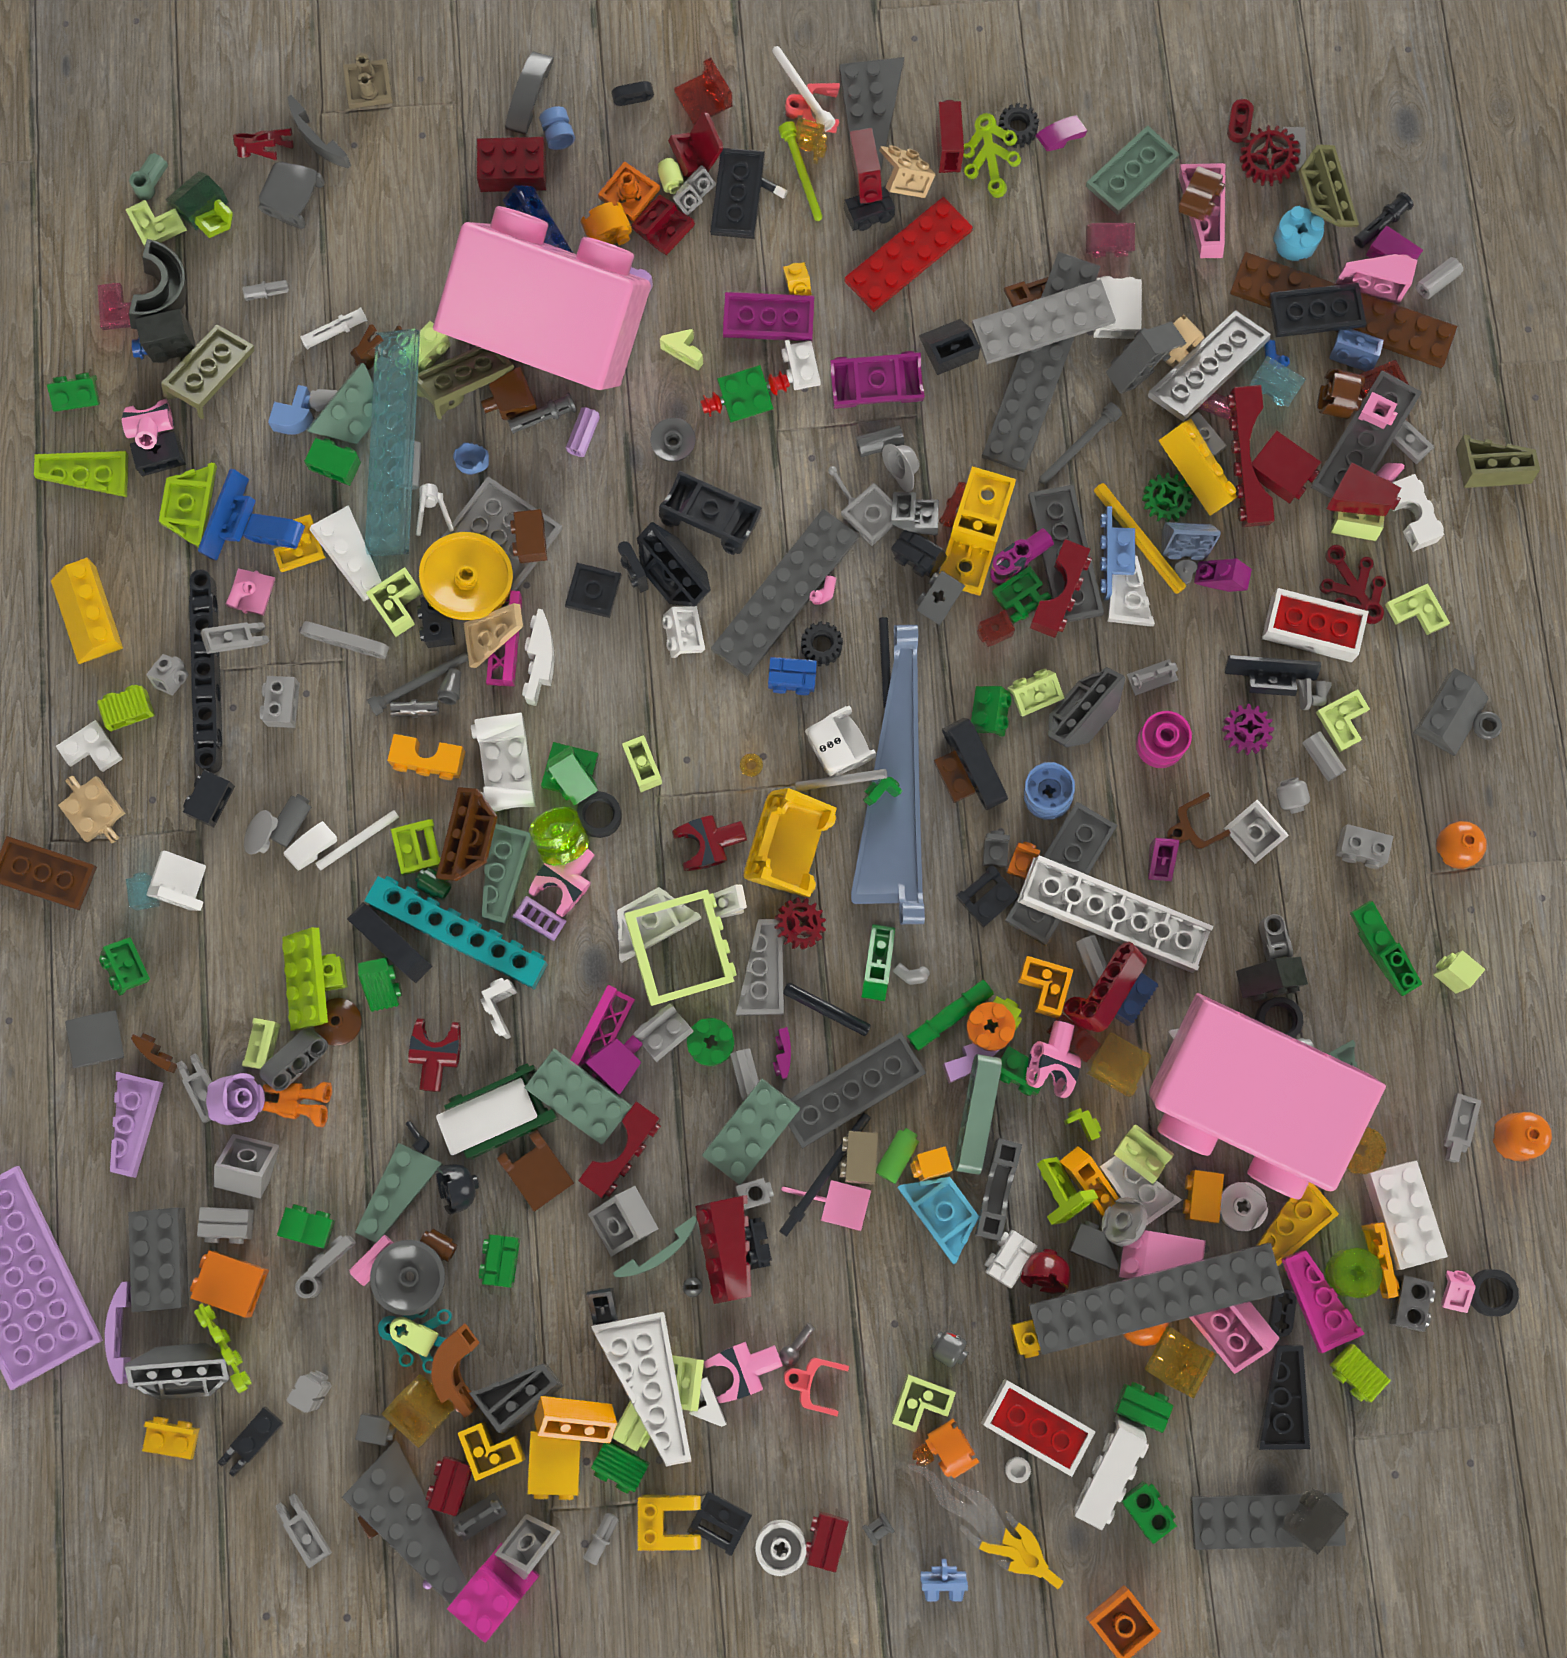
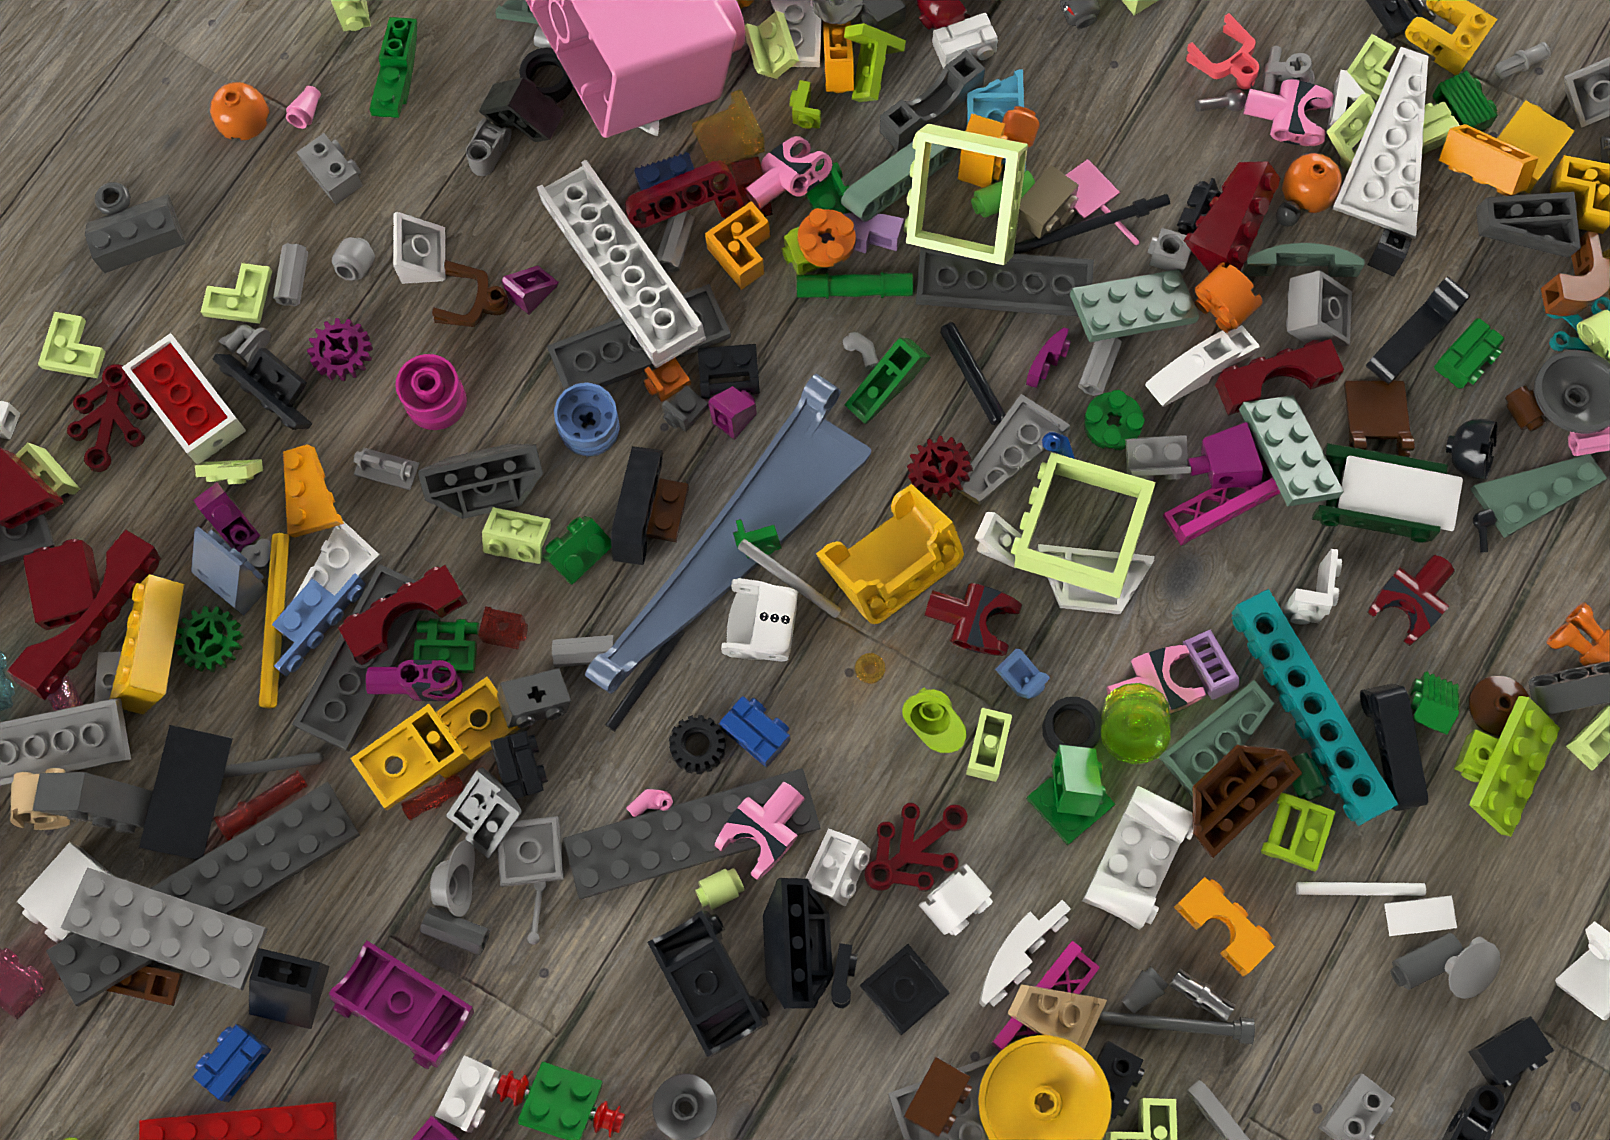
camera: 140 degrees left, 5 degrees down
(546, 1247) = (1418, 331): none -> black beam
(596, 656) = (956, 900): none -> white brick
(645, 673) = (911, 851): none -> dark red plant
(652, 824) = (1022, 675): none -> medium blue bracket
(676, 1121) = (1201, 363): none -> white slope
(689, 759) = (934, 720): none -> lime piece
(691, 1180) = (1227, 296): none -> orange brick
(703, 1319) = (1312, 182): none -> orange cylinder
(708, 1445) = (1369, 65): none -> yellowish green plate
(732, 995) = (1057, 443): none -> blue arm
(742, 618) = (764, 826): none -> bright pink connector
(744, 570) = (719, 888): none -> yellowish green brick
(775, 1397) = (1282, 71): none -> light grey piece
(920, 1206) = (1021, 125): none -> orange head
(923, 1143) = (1010, 198): none -> yellowish green window
(936, 650) = (579, 650): none -> light grey axle
(947, 287) = (230, 1062): none -> blue brick
(962, 865) = (732, 411): none -> magenta slope
(1055, 421) = (248, 812): none -> clear red pin
(1100, 403) = (185, 792): none -> black tile
(1185, 622) = (306, 494): none -> light orange wing
(1243, 603) = (233, 470): none -> yellowish green plate
(1421, 877) = (302, 109): none -> bright pink cone

